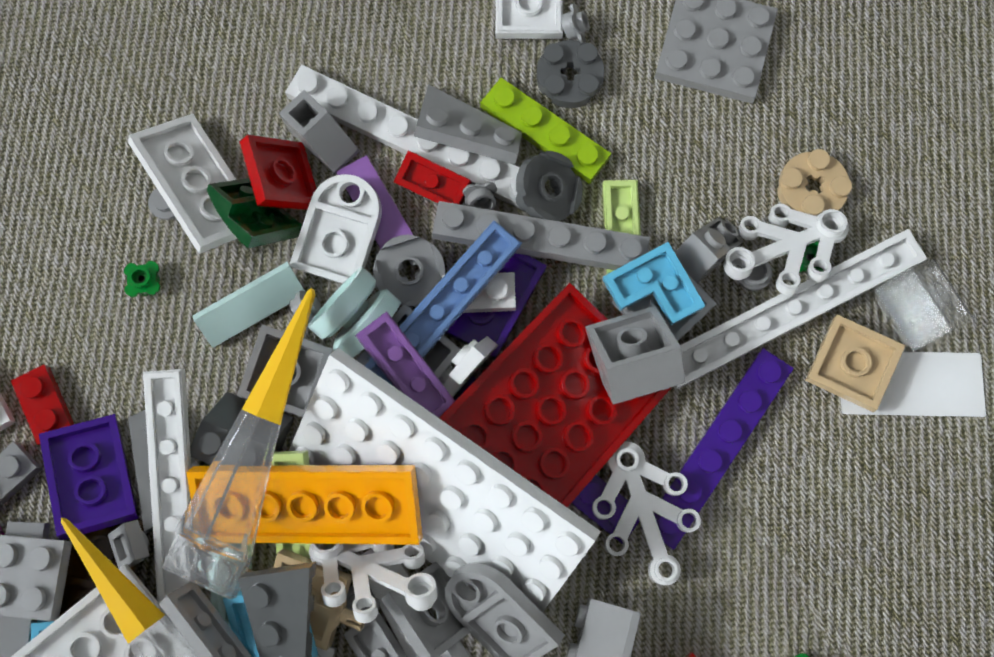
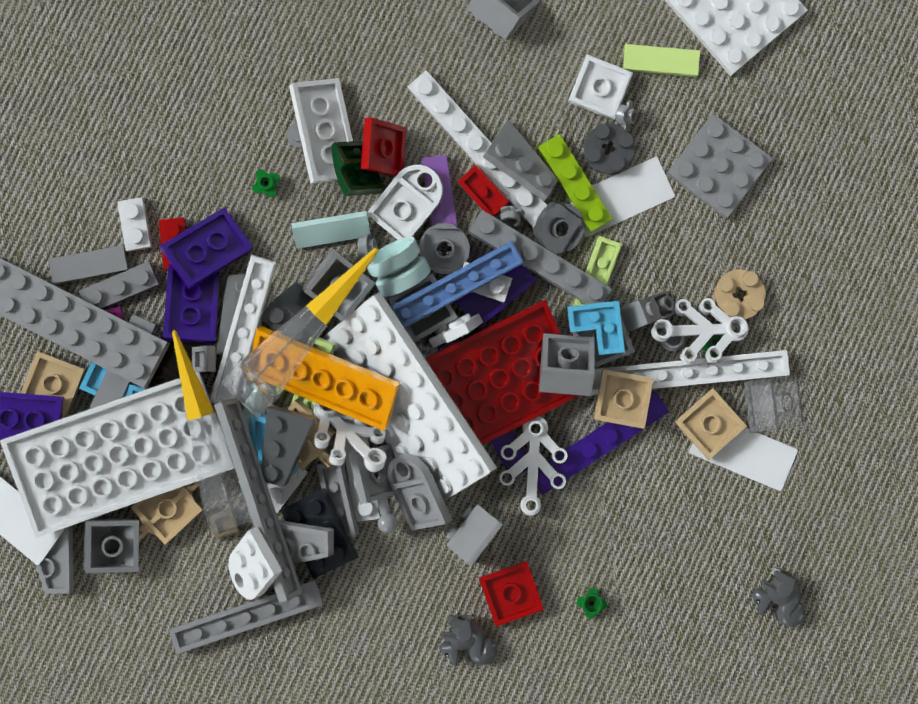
camera: 15 degrees right, 10 degrees up
(84, 392) = (206, 248): none -> dark purple plate
(318, 132) = (420, 128): light grey slope -> none
(404, 364) = (417, 316): medium lavender tile -> none
(623, 115) = (632, 192): none -> white sticker
(728, 372) = (623, 398): none -> tan plate

